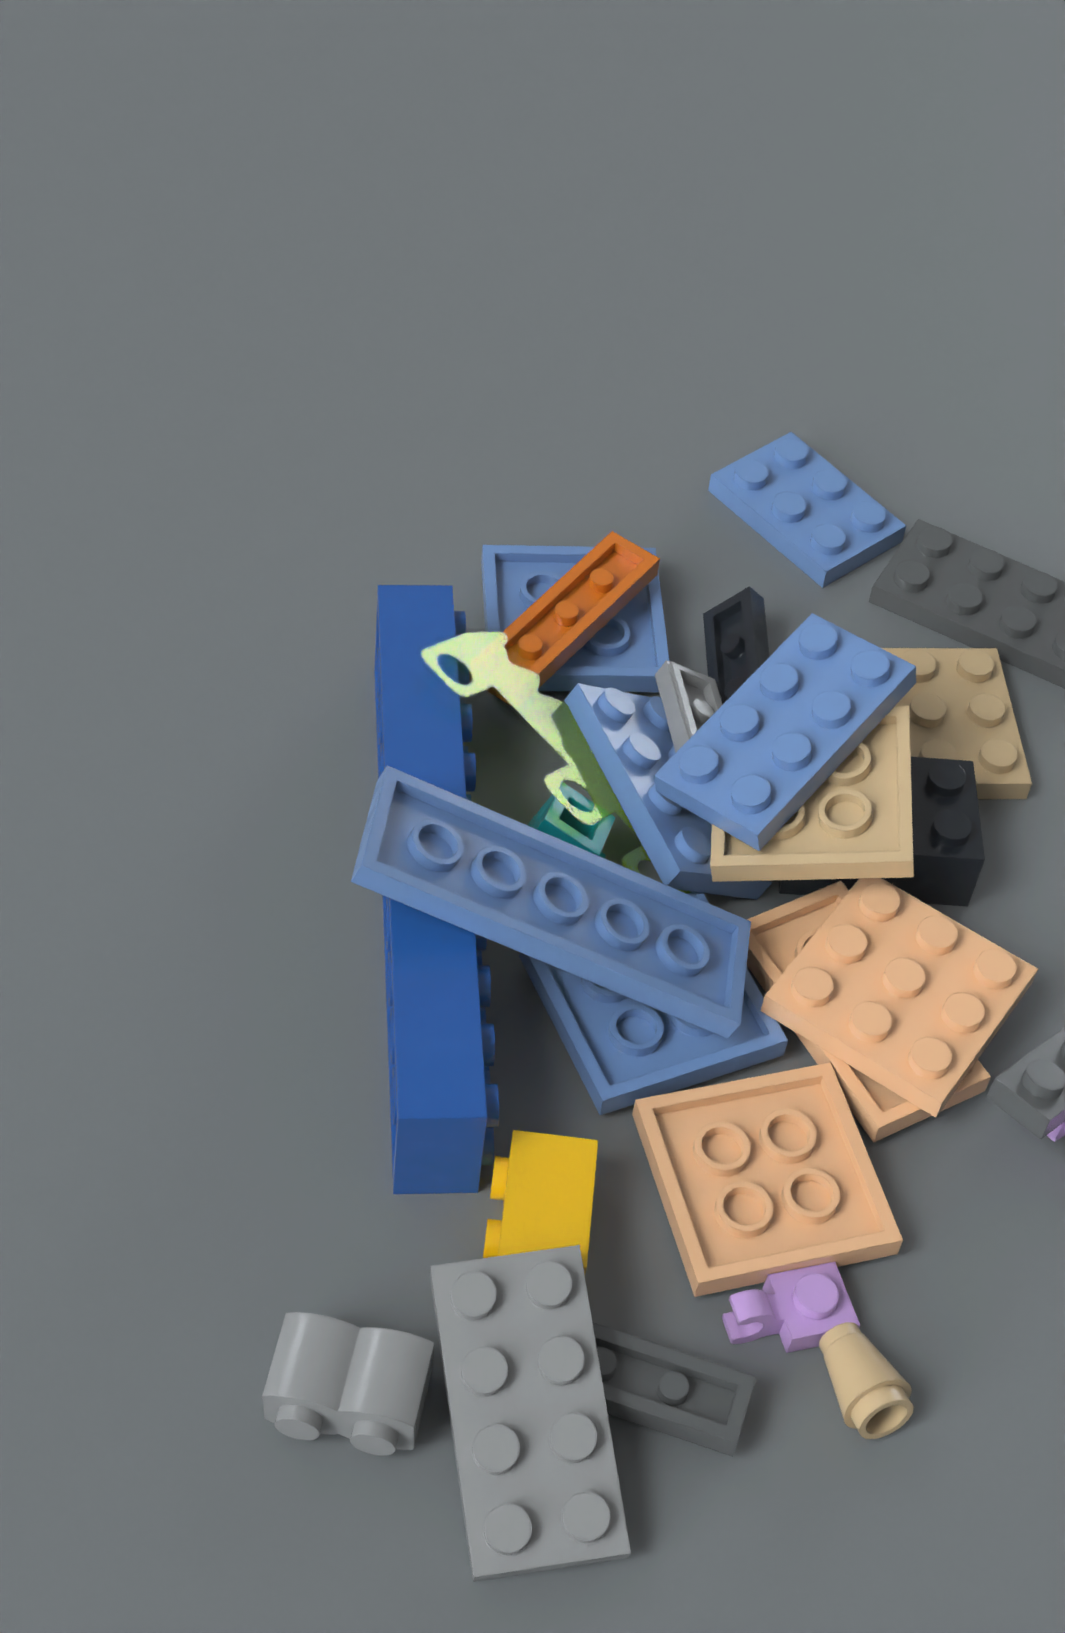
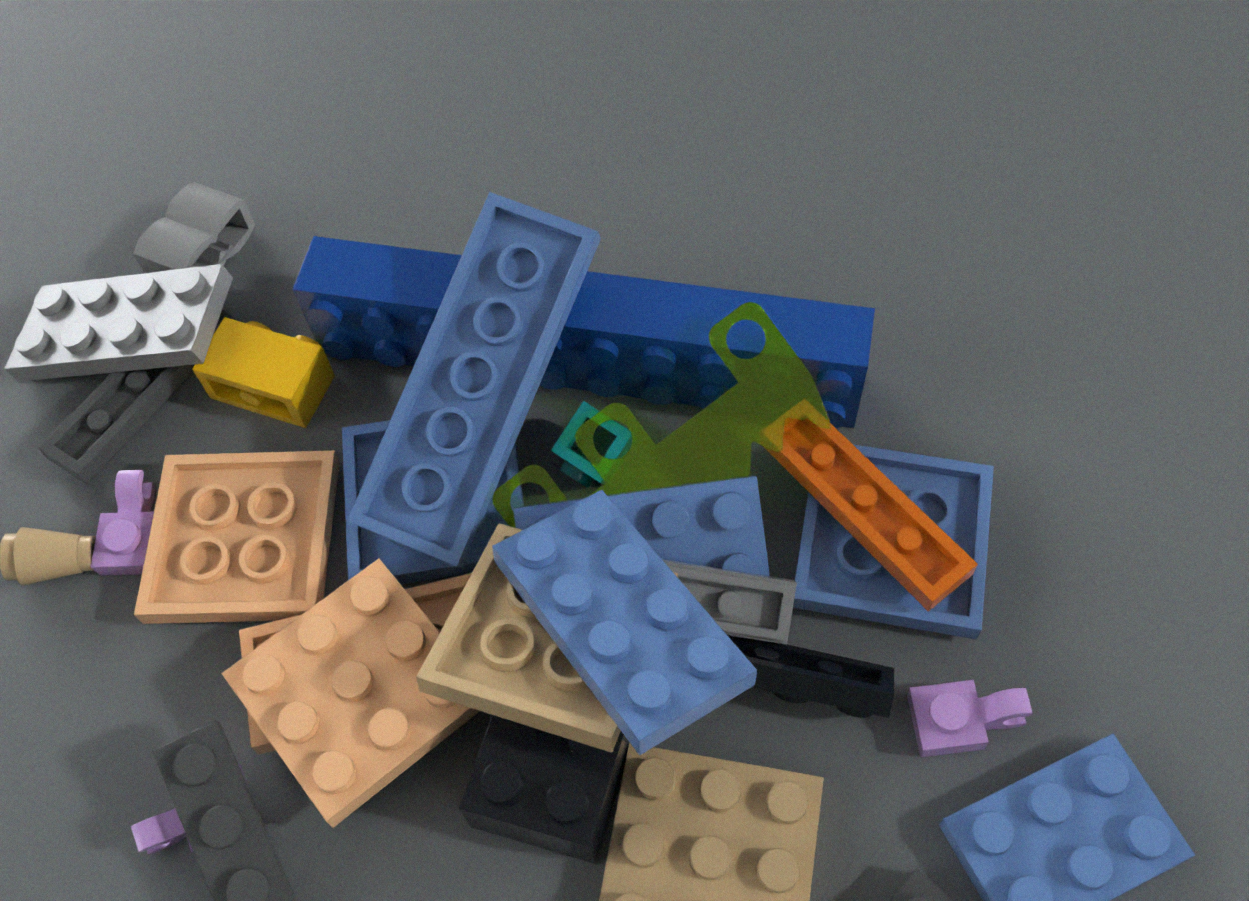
camera: 115 degrees right, 10 degrees up
(727, 569) = (954, 719): none -> lavender plate

